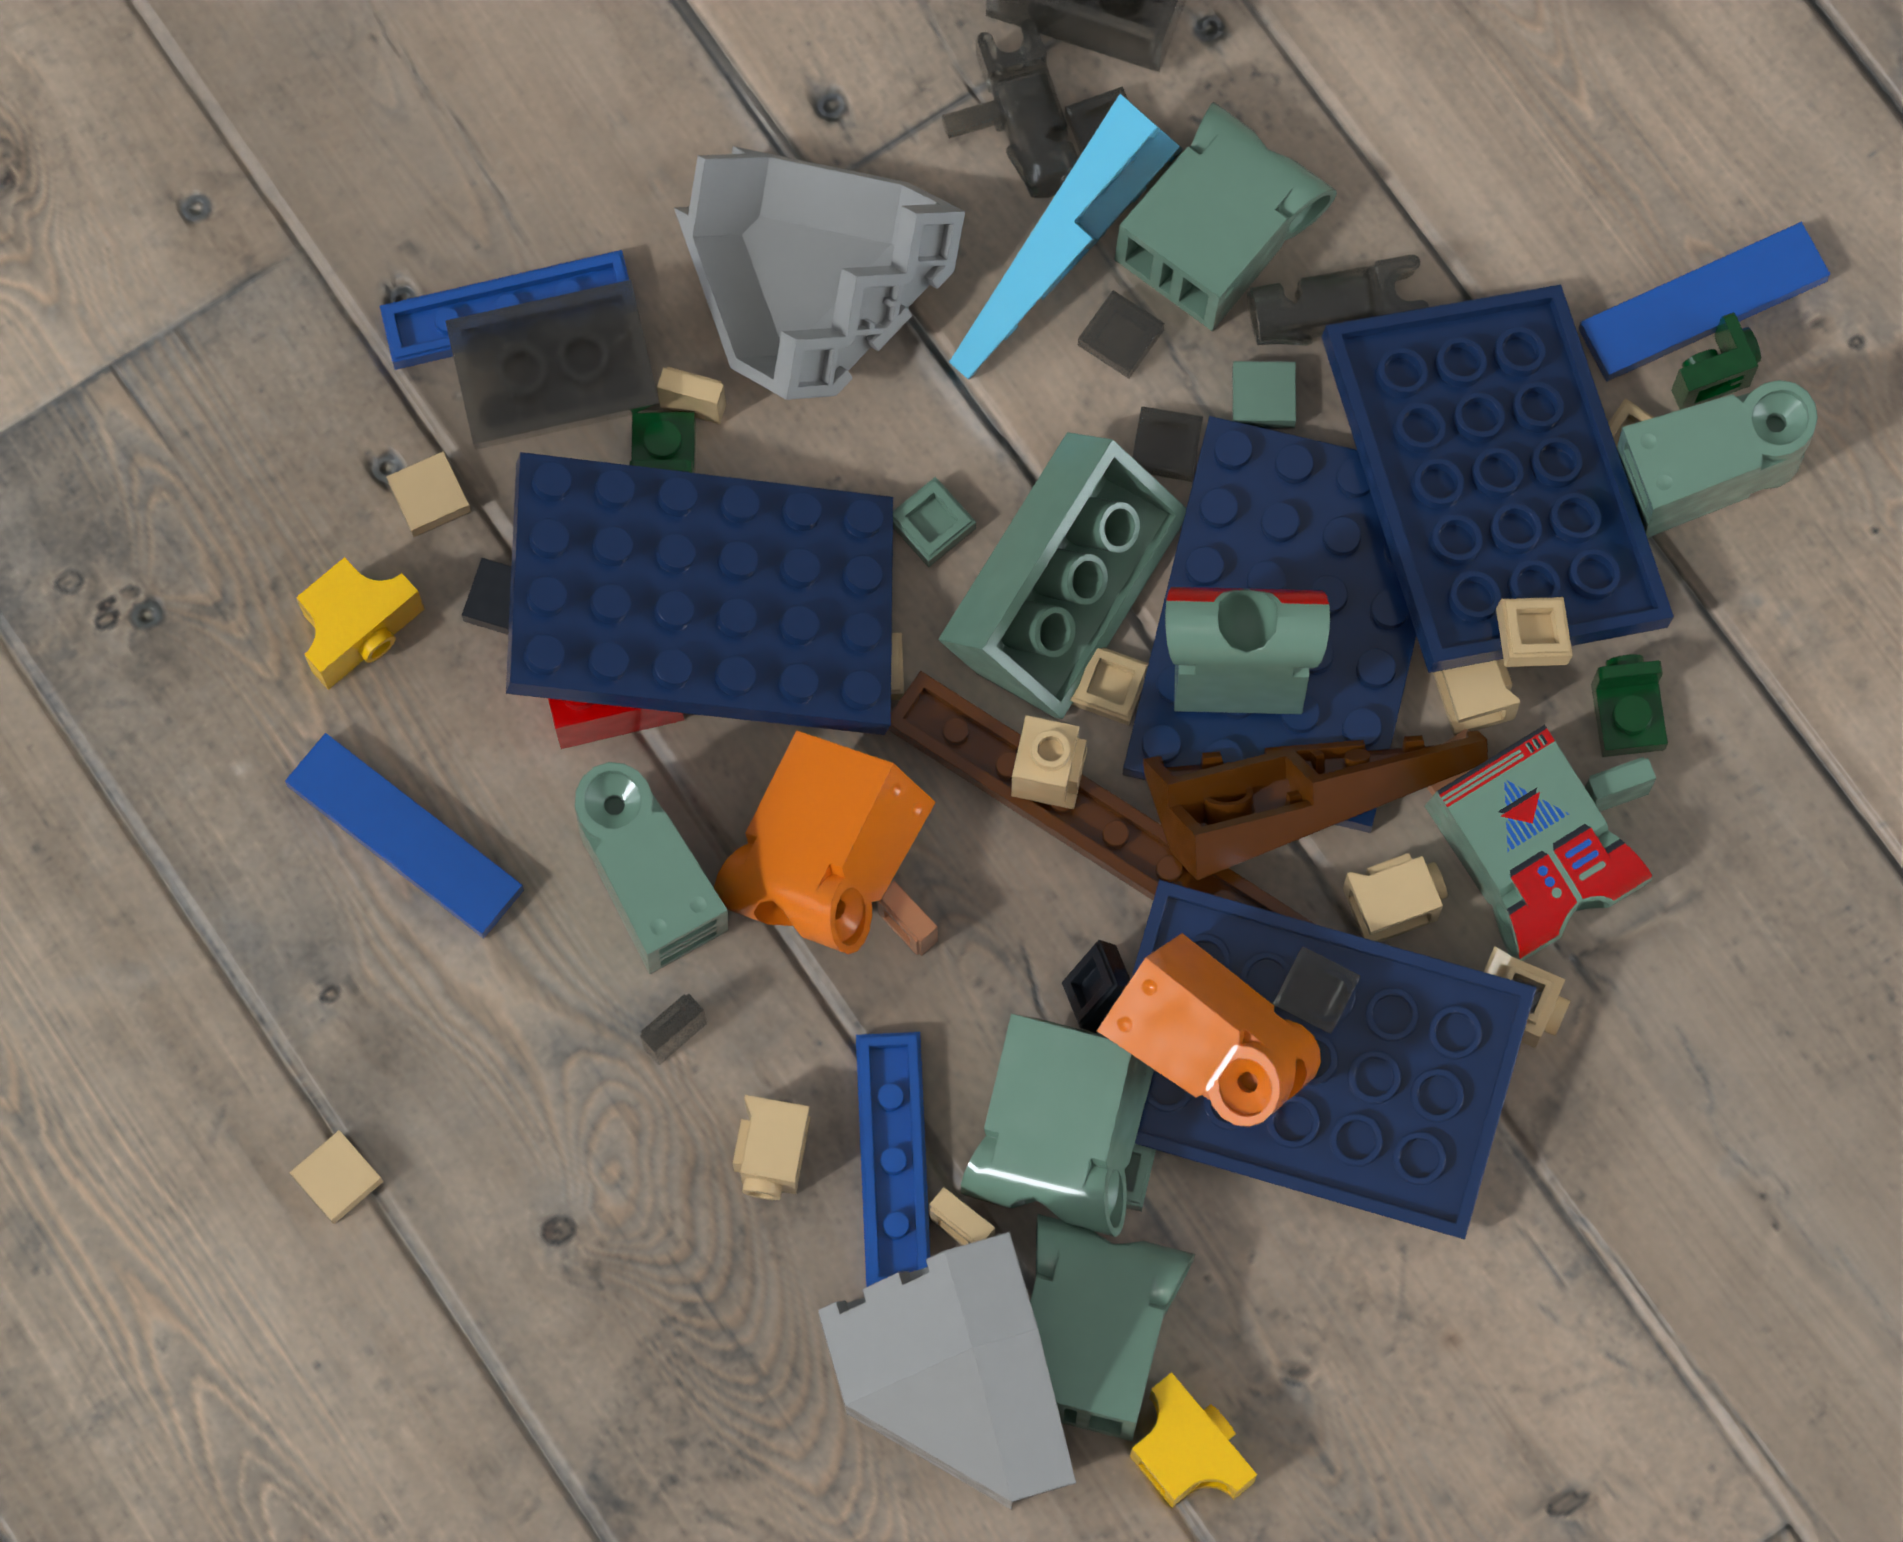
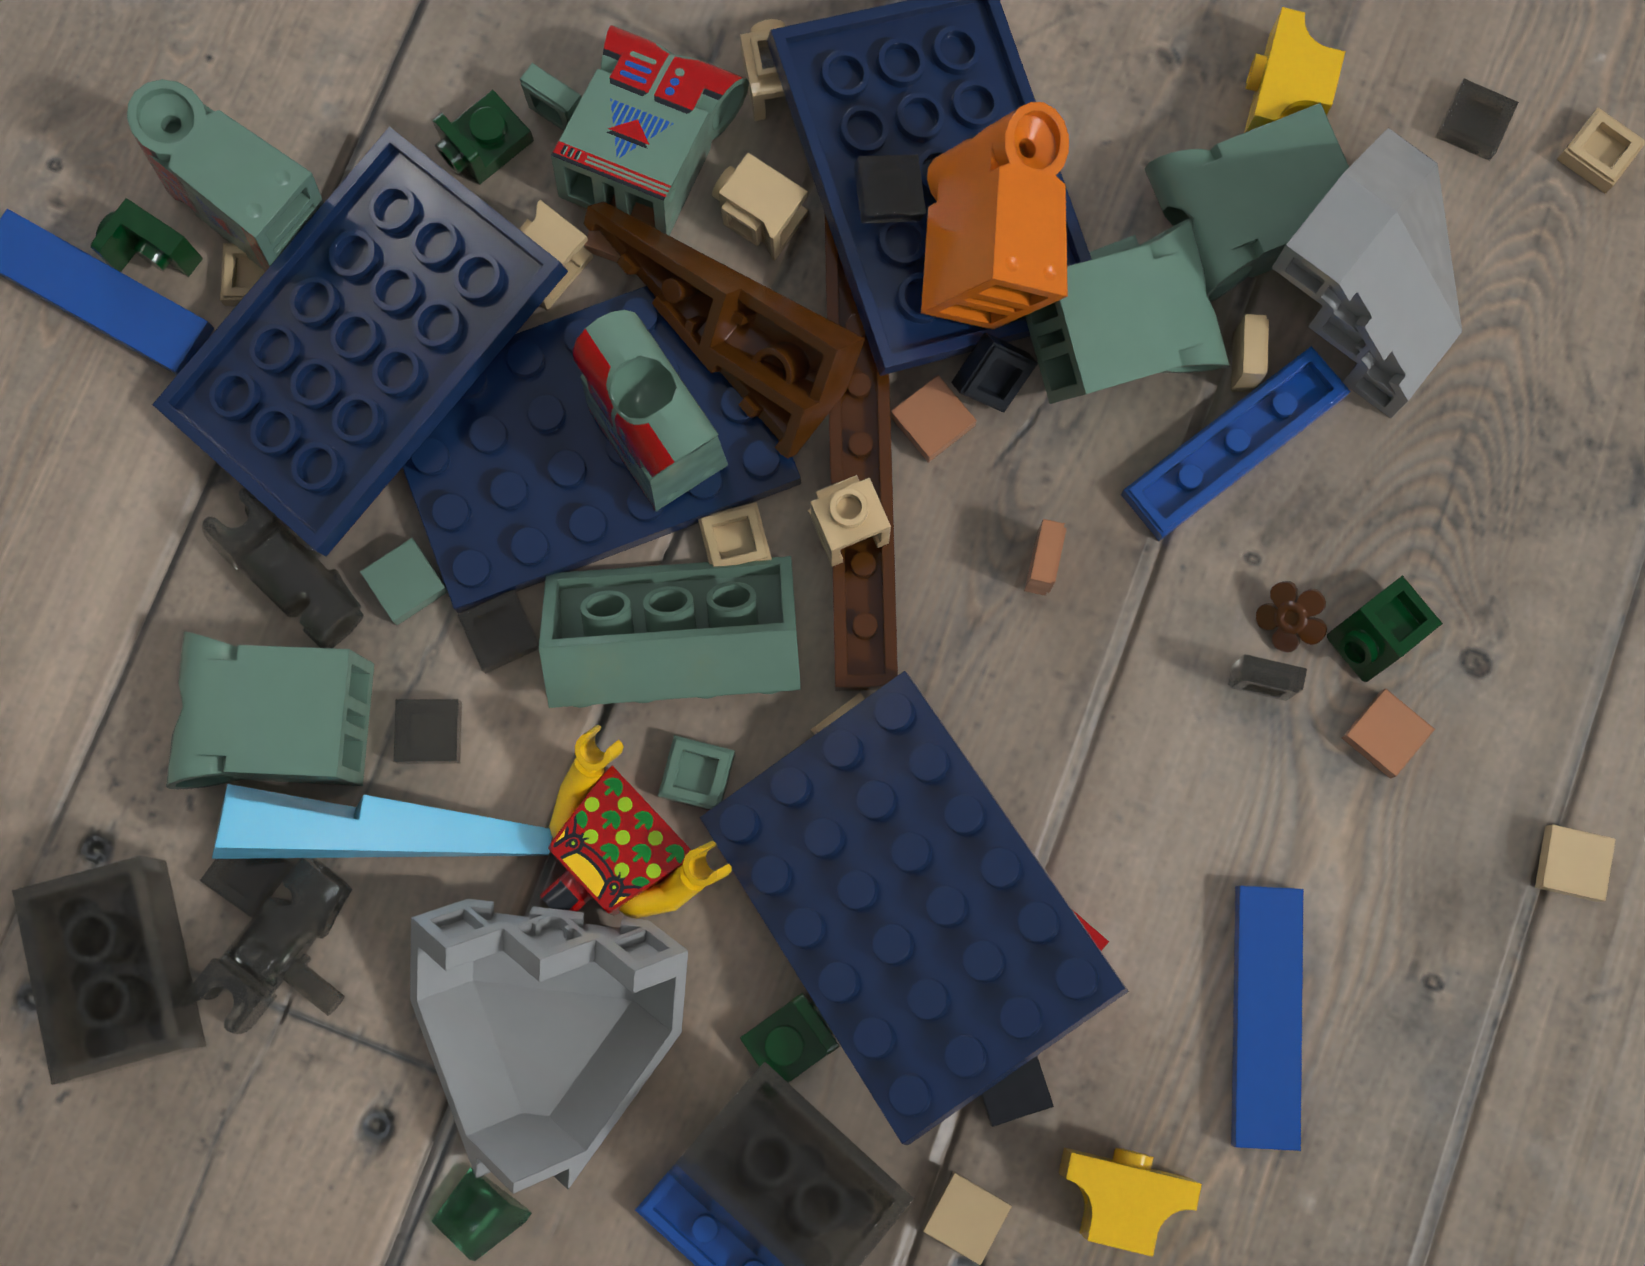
camera: 125 degrees left, 5 degrees up
(554, 1103) = (1388, 733): none -> nougat tile
(641, 1162) = (1384, 629): none -> dark green bracket
(646, 866) = (1169, 779): sand green piece -> none
(691, 393) = (726, 1050): tan tile -> none
(702, 130) = (479, 1215): none -> clear green slope
(708, 1093) = (1293, 616): none -> reddish brown plant
(771, 1147) = (1300, 535): tan window -> none
(824, 843) = (1044, 651): orange piece -> none
(915, 417) = (618, 844): none -> torso
(1098, 914) = (933, 418): none -> nougat tile
(1534, 632) = (479, 205): tan tile -> none

